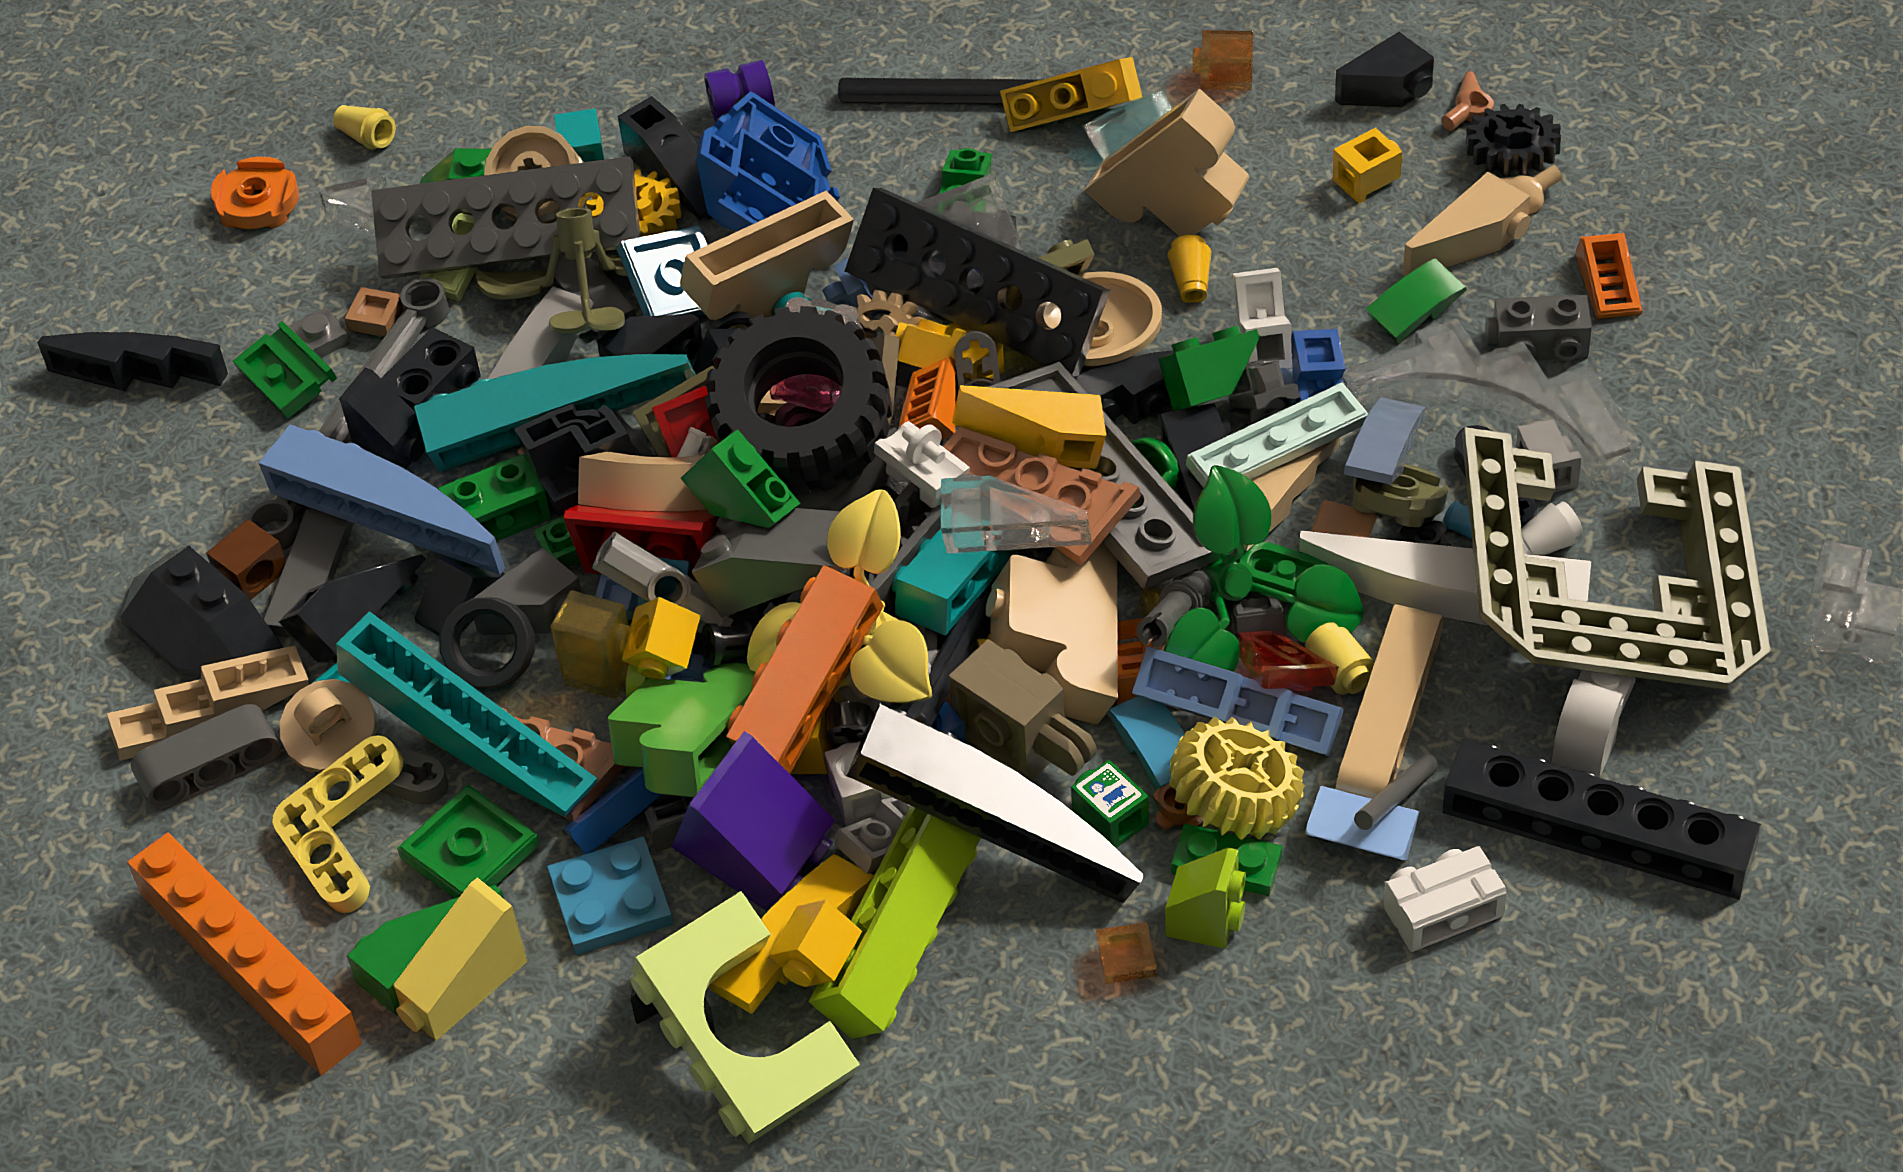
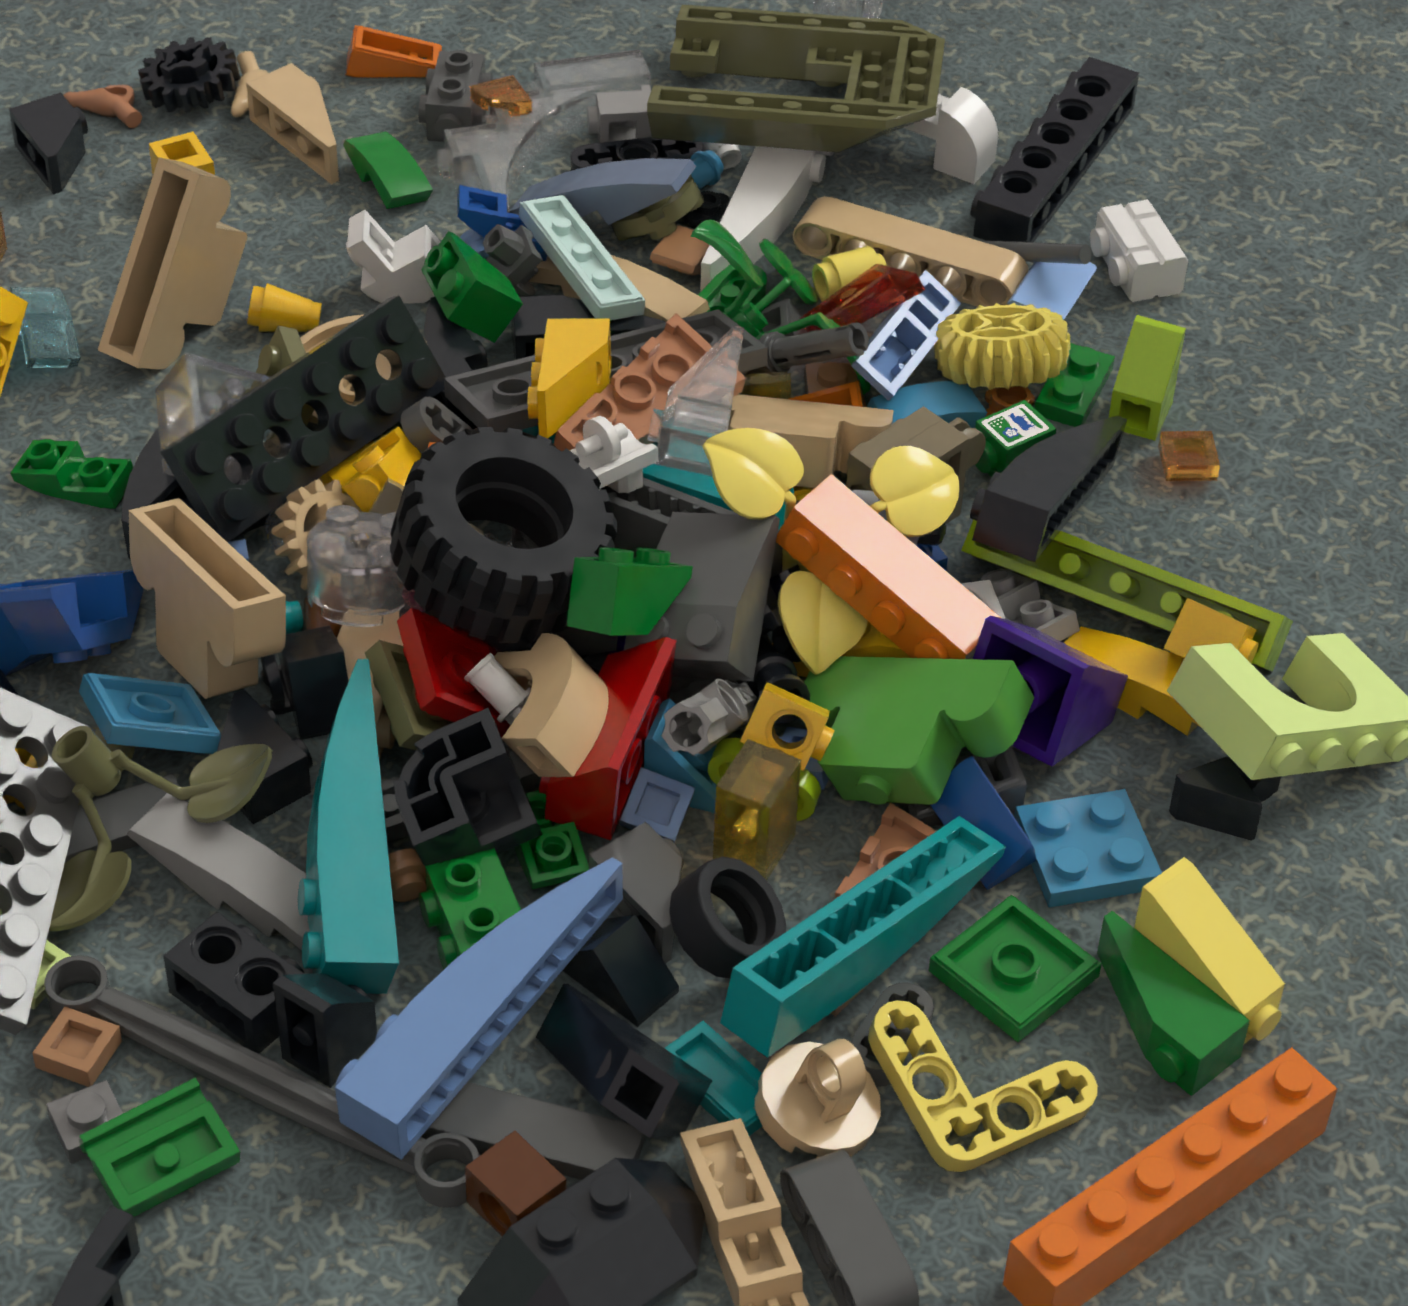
camera: 90 degrees left, 5 degrees down
(1512, 346) = (502, 94): none -> clear orange tile

